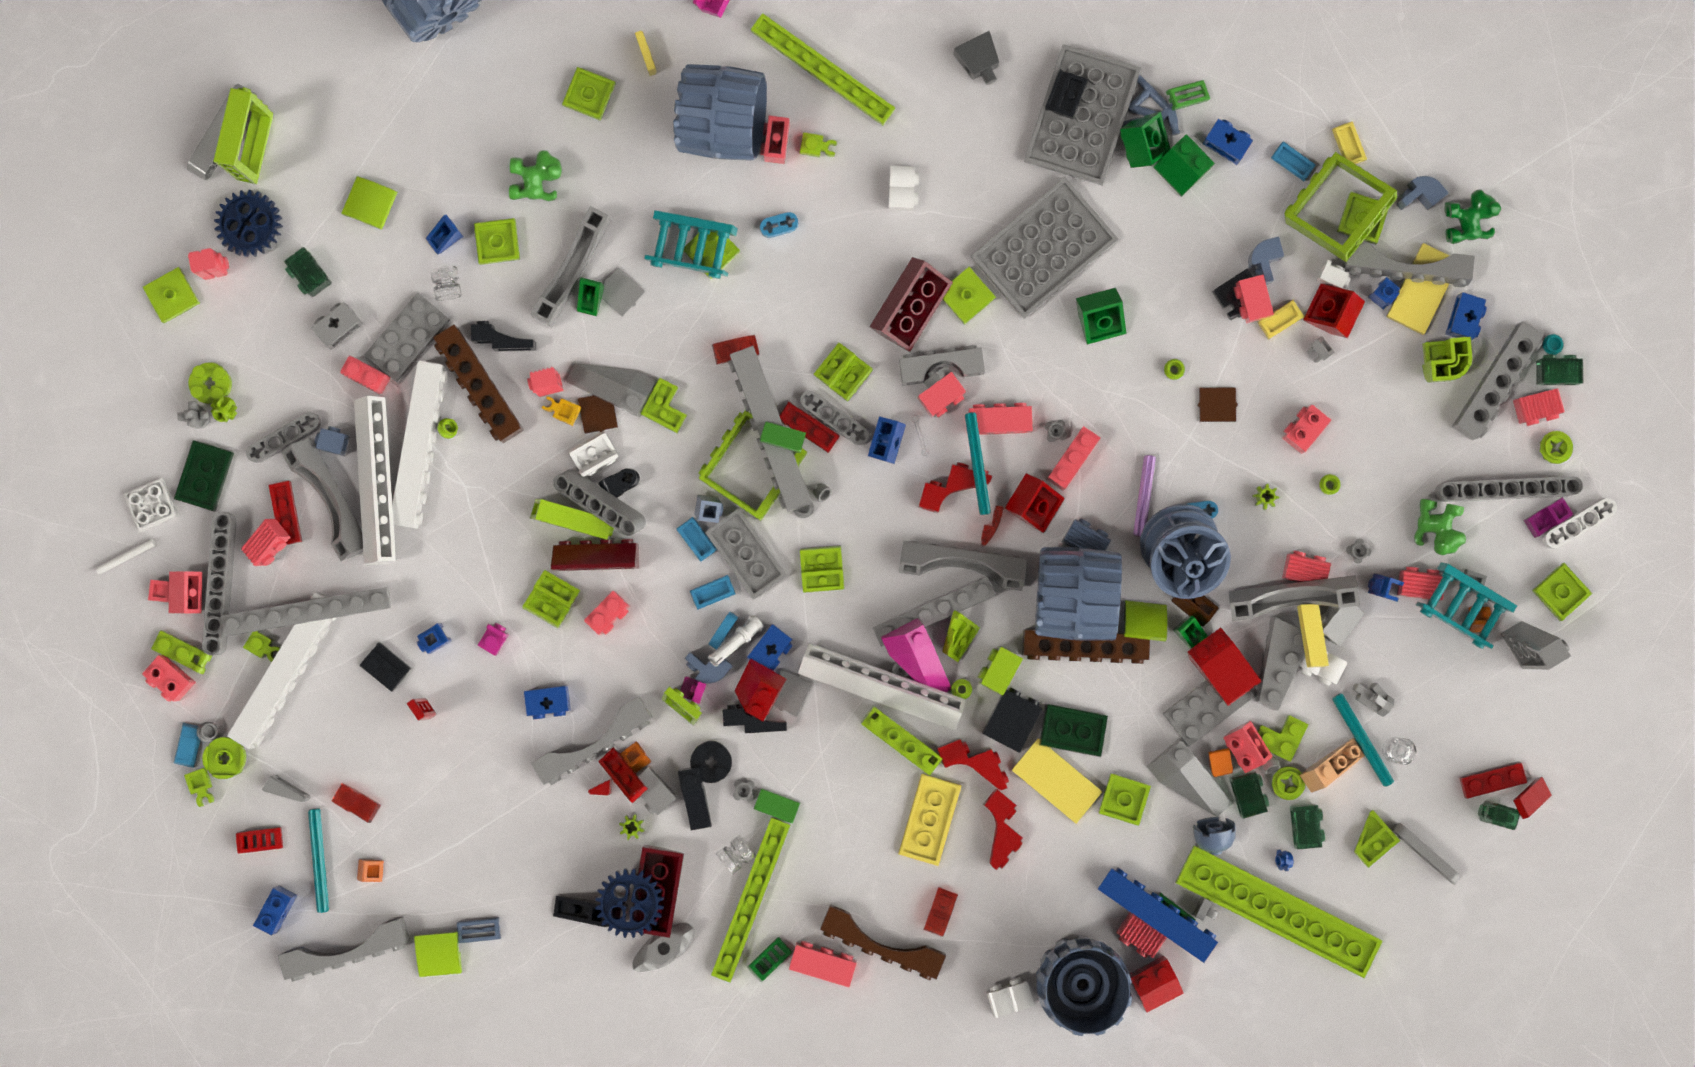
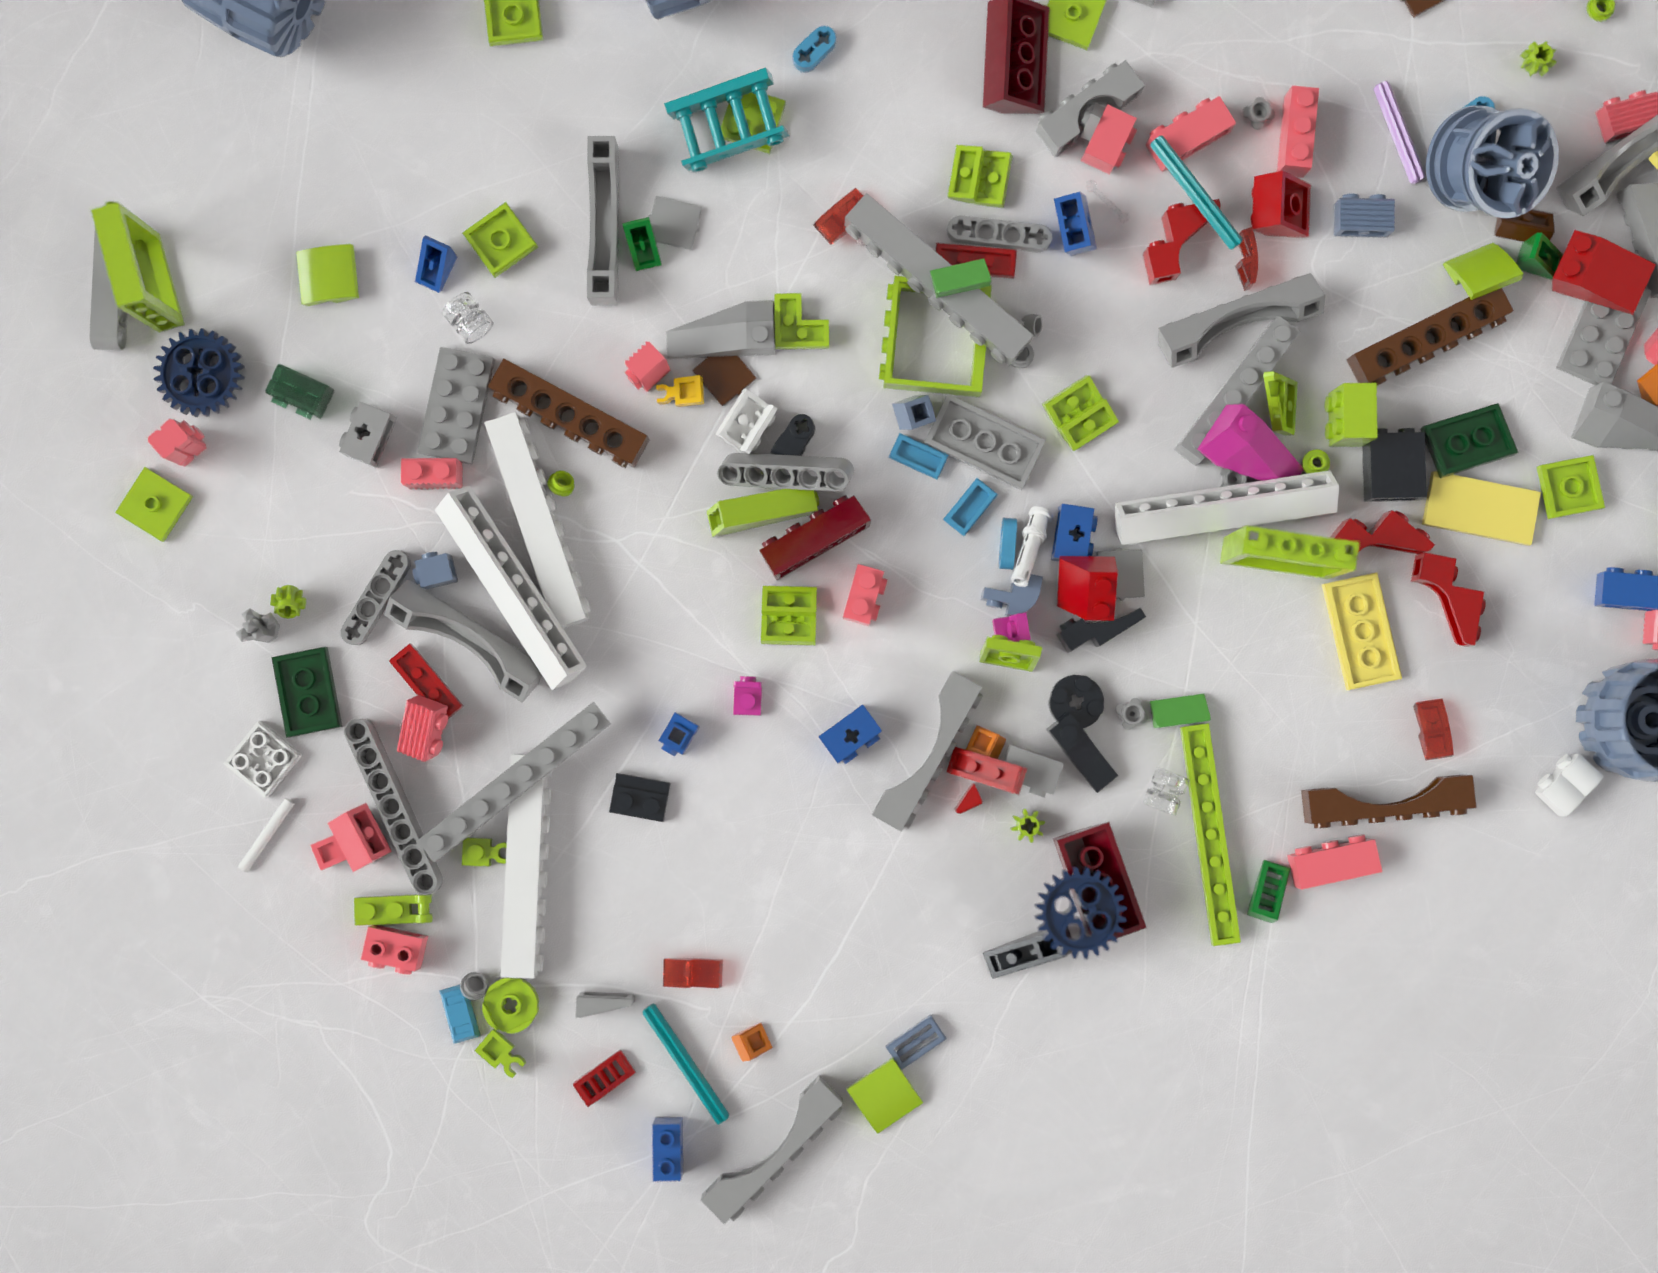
camera: 30 degrees left, 0 degrees up
(201, 374) = (240, 575): lime plate -> none
(421, 709) = (712, 820): red tile -> none
(486, 334) = (547, 351): black slope -> none
(546, 168) = (512, 124): bright green animal -> none
(649, 957) = (1129, 963): light grey piece -> none
(1078, 593) = (1401, 272): sand blue wheel -> none

